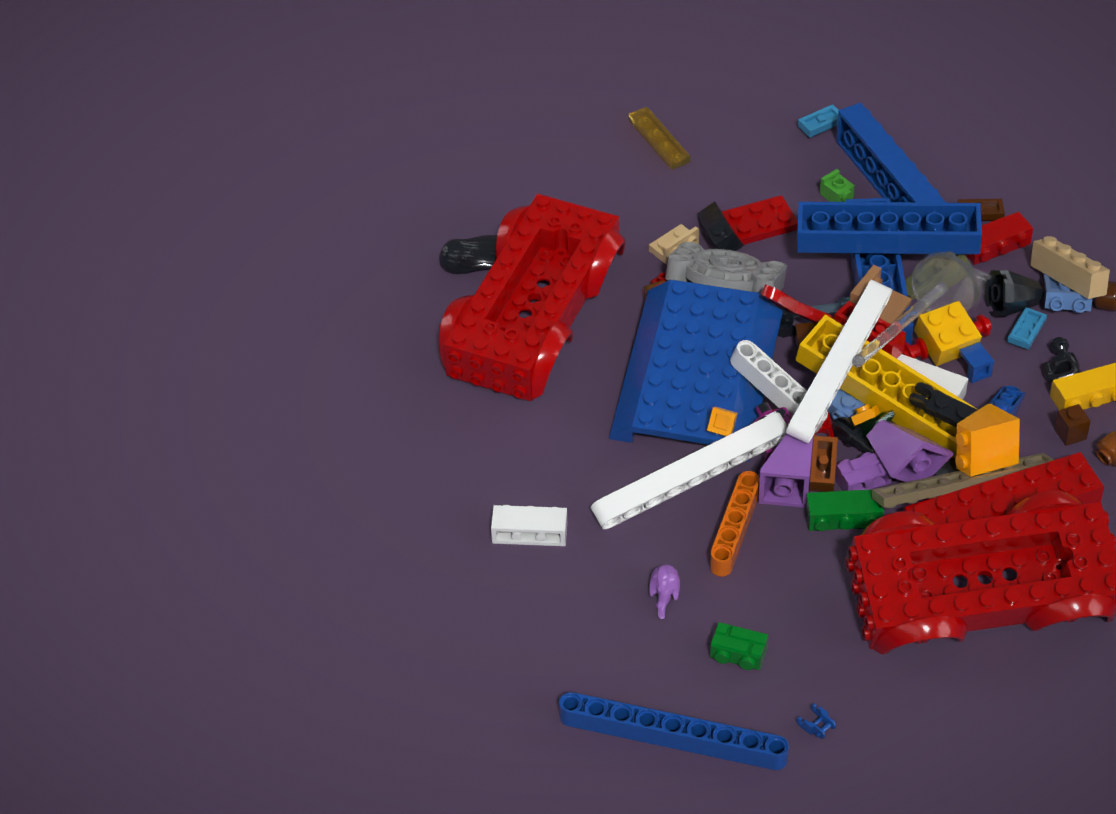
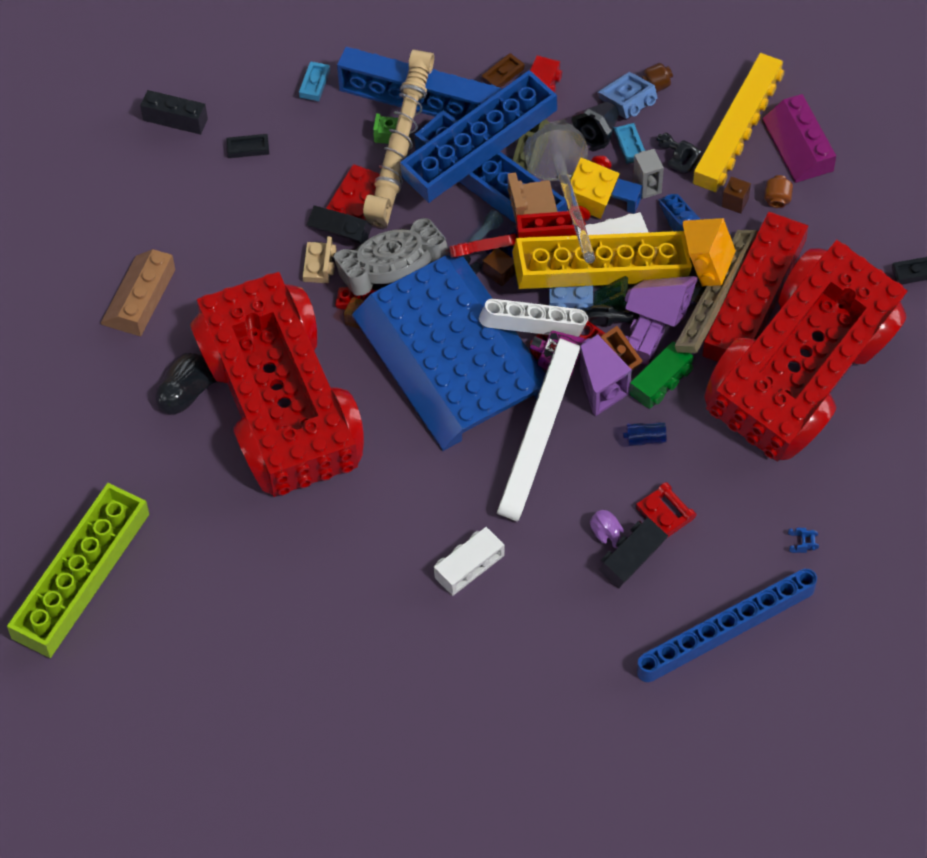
camera: 45 degrees left, 10 degrees up
(253, 318) = (78, 570): none -> lime brick
(521, 176) = (140, 292): none -> medium nougat slope
(659, 137) = (211, 182): clear yellow plate -> none
(661, 617) = (632, 552): none -> black brick
(688, 73) = (174, 112): none -> black brick
(718, 132) = (247, 146): none -> black tile
(721, 607) = (661, 515): none -> red plate
(722, 421) = (529, 375): light orange plate -> none
(735, 523) = (606, 452): orange beam -> none
(739, 646) = (703, 530): green brick -> none
(761, 235) = (379, 206): none -> tan piece
(779, 542) = (642, 434): none -> clear blue piece
(839, 362) = (566, 267): white beam -> none
(865, 413) = (606, 293): light orange plate -> none
(940, 405) = (658, 247): black hinge -> none
(1009, 355) = (648, 173): none -> light grey brick
(1070, 267) = (619, 75): tan brick -> none

